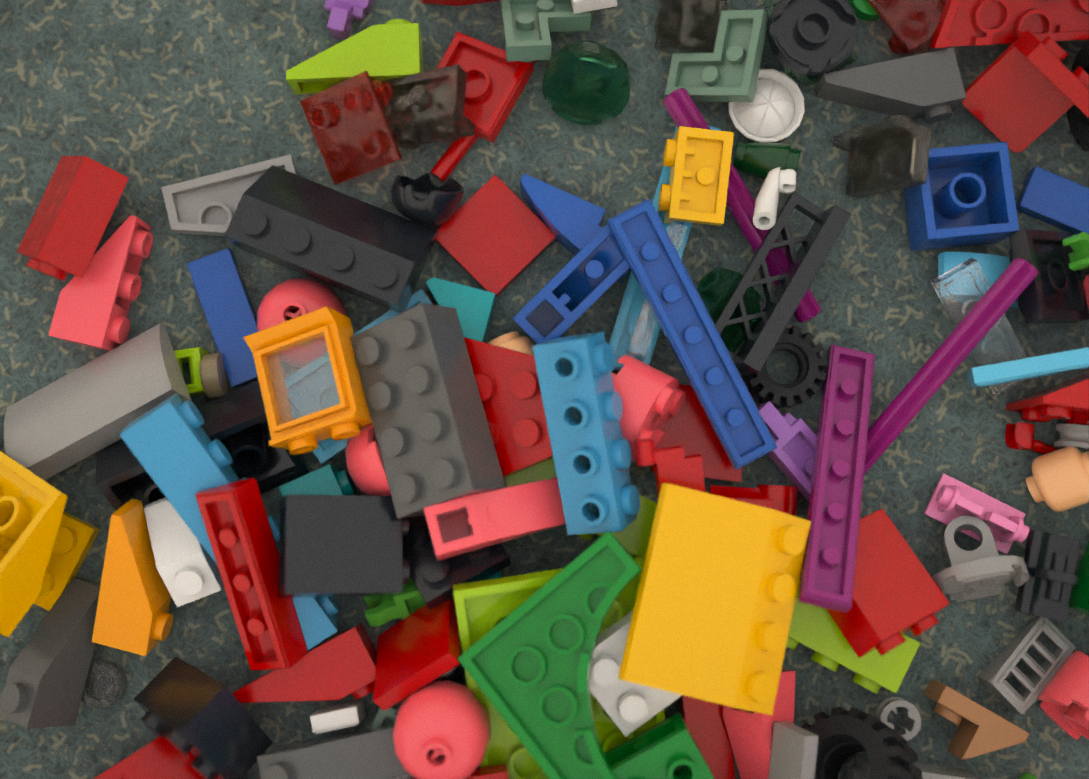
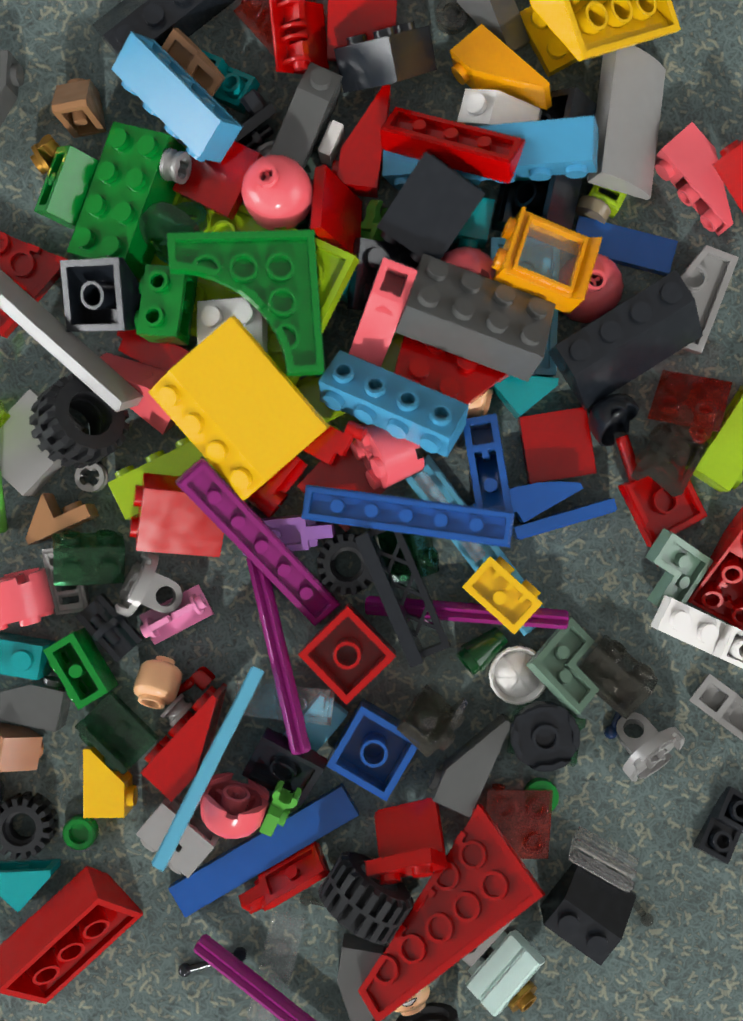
camera: 120 degrees right, 5 degrees up
(565, 171) = (564, 518): none -> blue tile
(586, 83) = (614, 571): clear green tile -> none
(767, 201) = (457, 628): white arm -> none
(880, 296) = (347, 653): none -> red brick
(991, 655) = (88, 558): none -> clear green bracket

